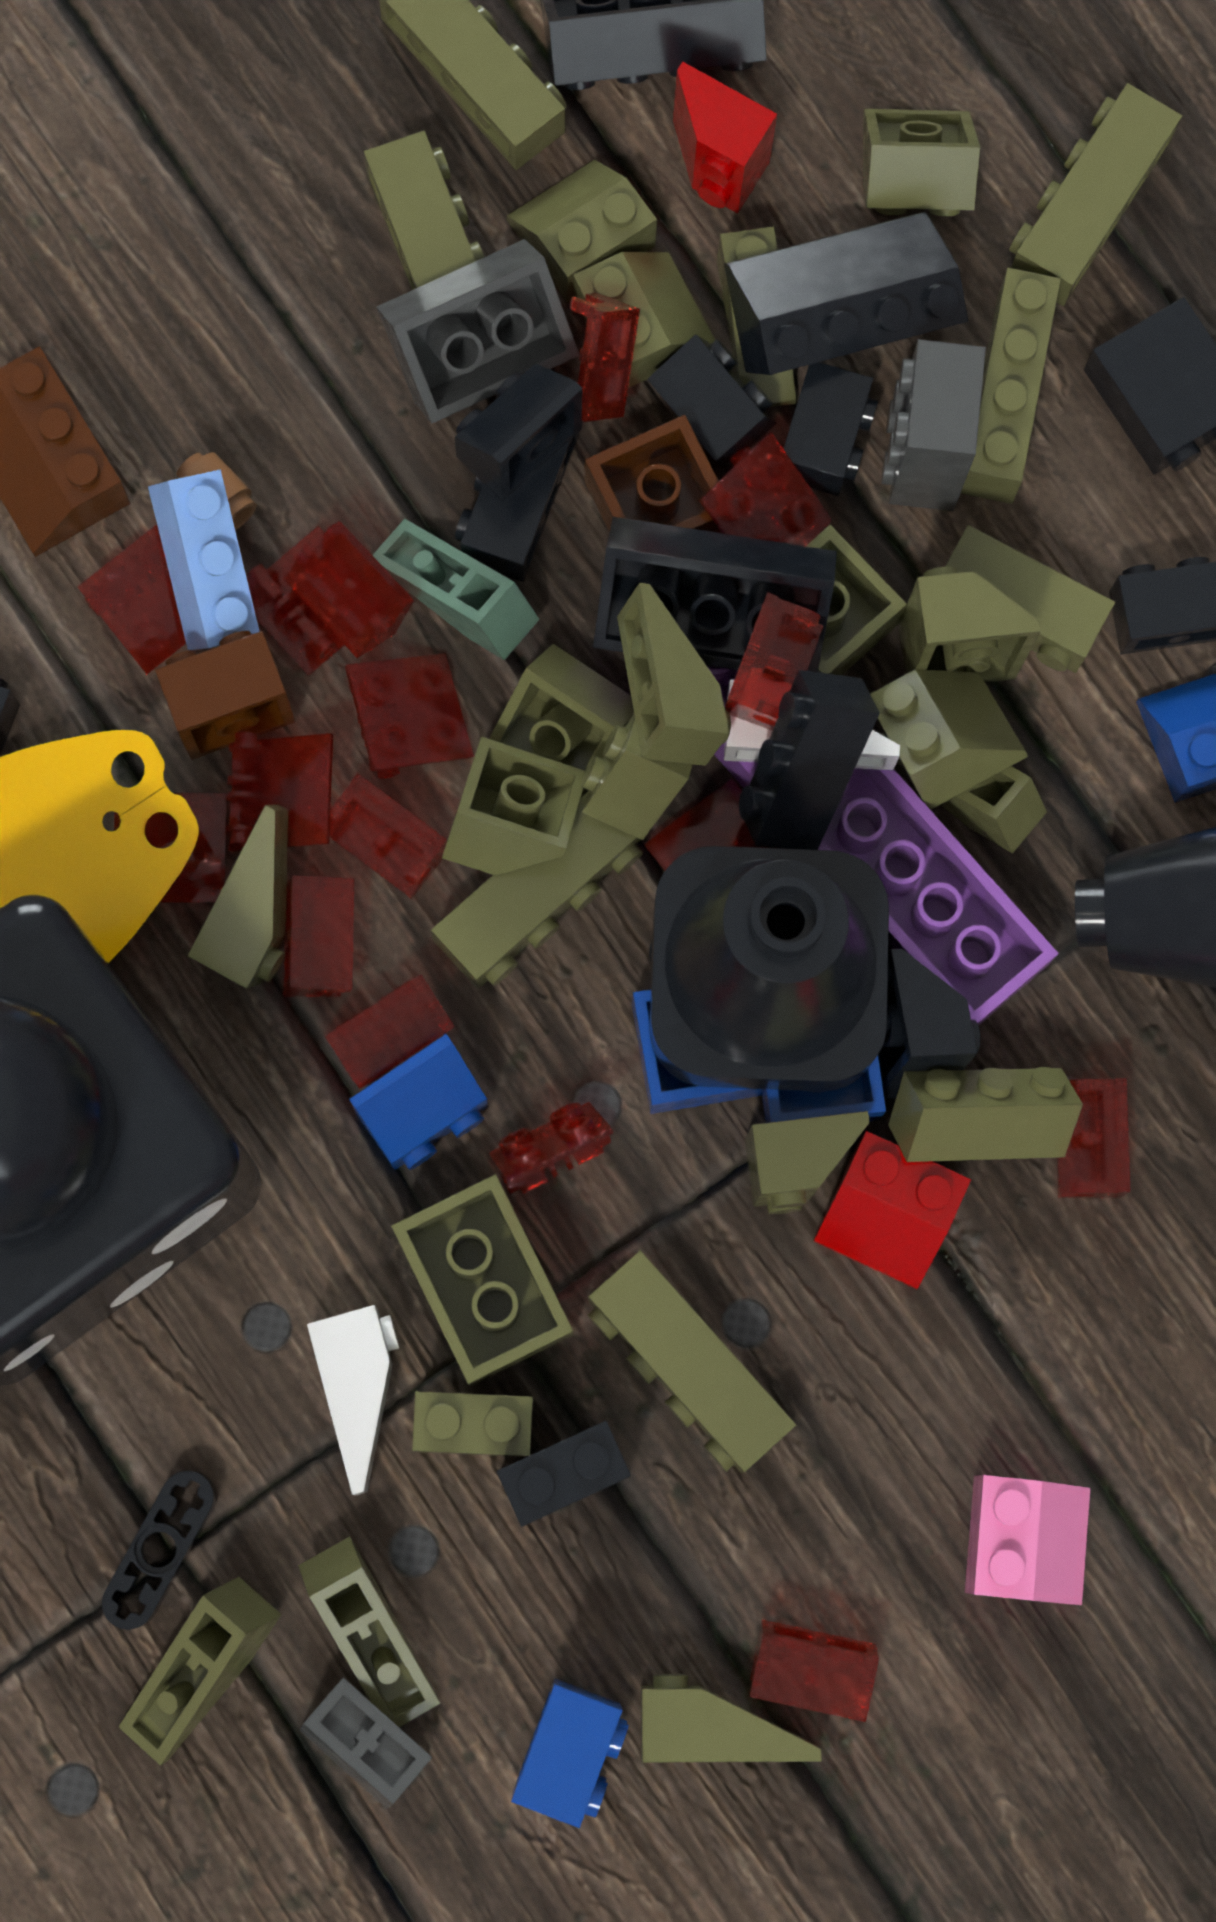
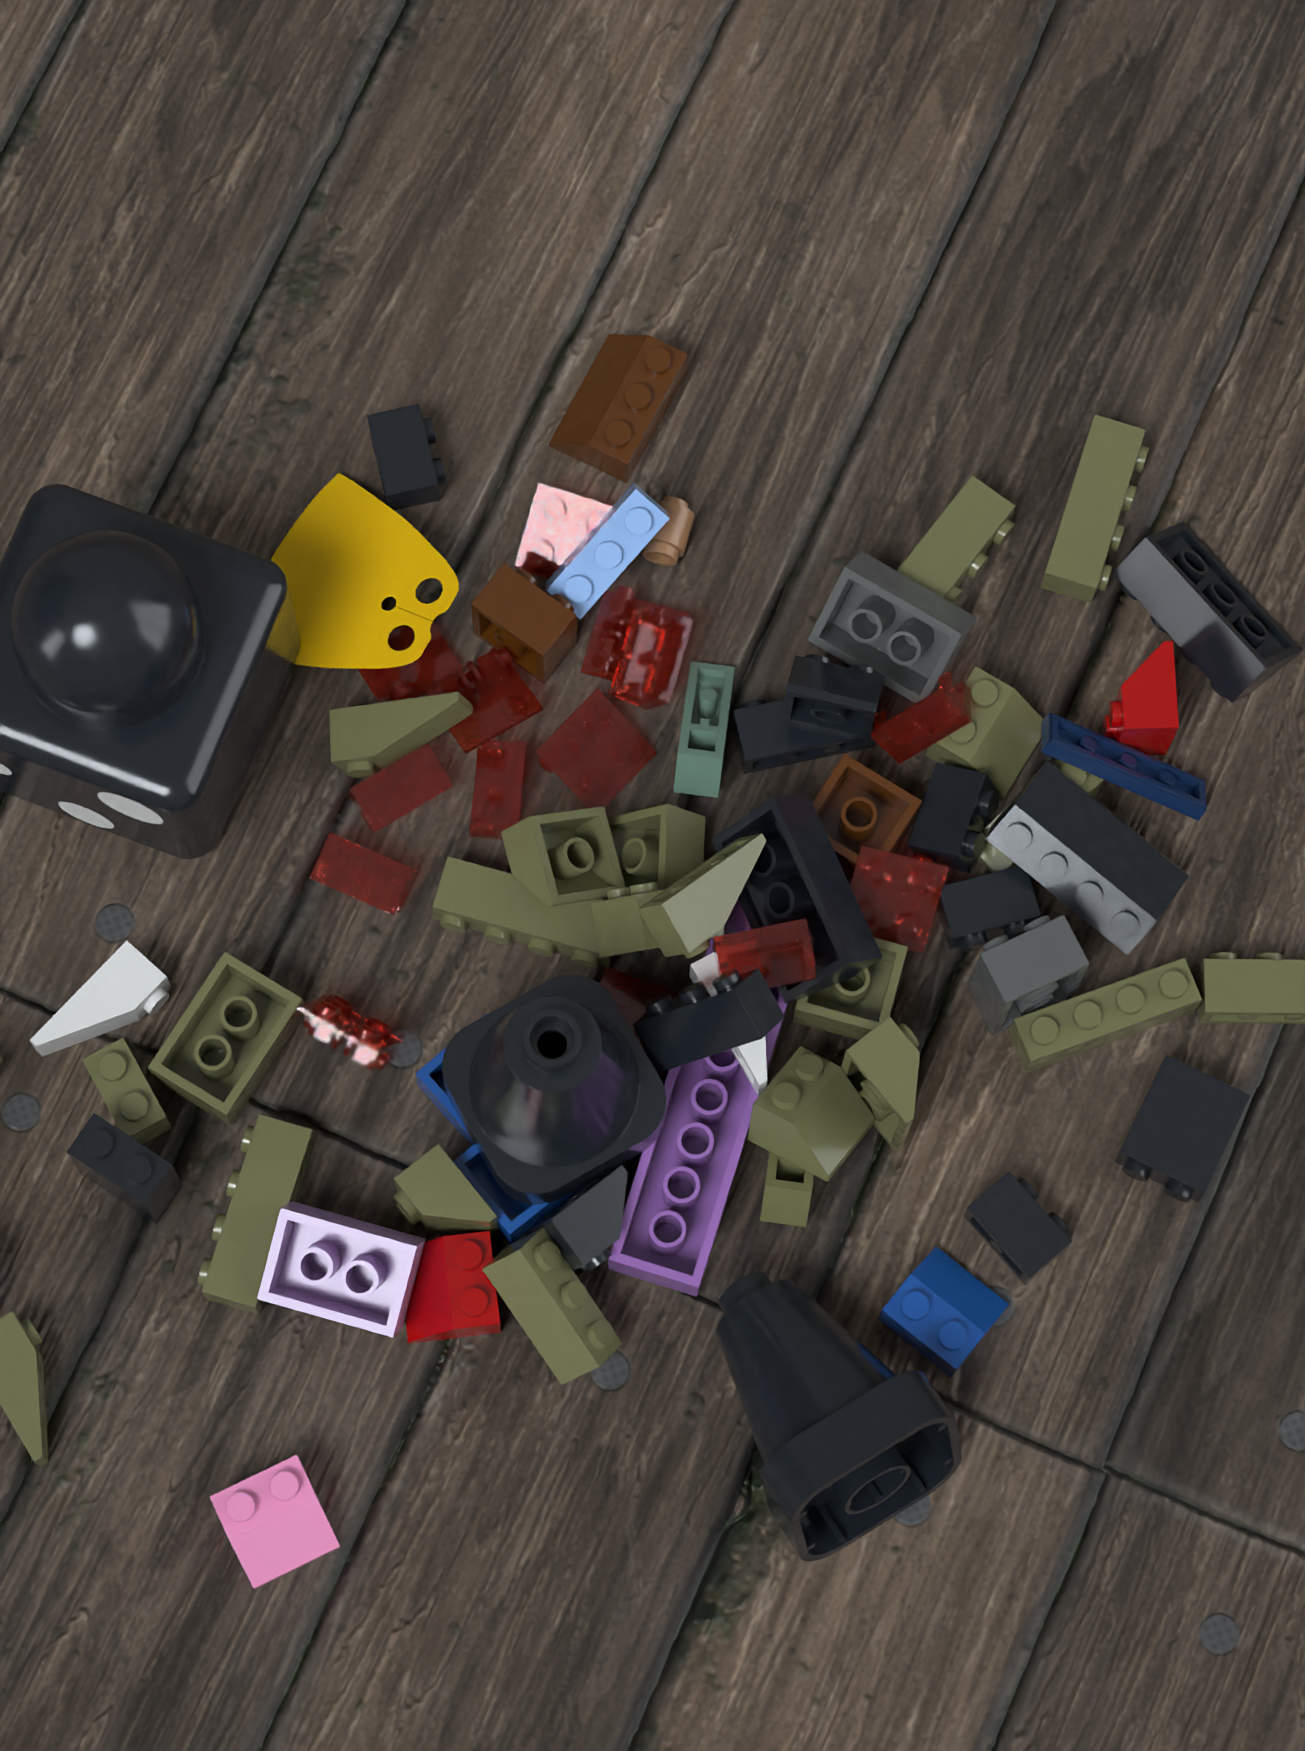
camera: 60 degrees right, 5 degrees down
(421, 1104) = (323, 923): blue slope -> none
(585, 222) = (1027, 654): olive slope -> none
(769, 201) = (1123, 766): none -> dark blue tile
(811, 1308) = (341, 1268): none -> lavender brick
(814, 1670) = (96, 1425): clear red hinge -> none
(919, 161) = (1233, 852): olive slope -> none
(1066, 609) = (950, 1119): olive brick -> none
(1099, 1148) = (589, 1400): clear red hinge -> none

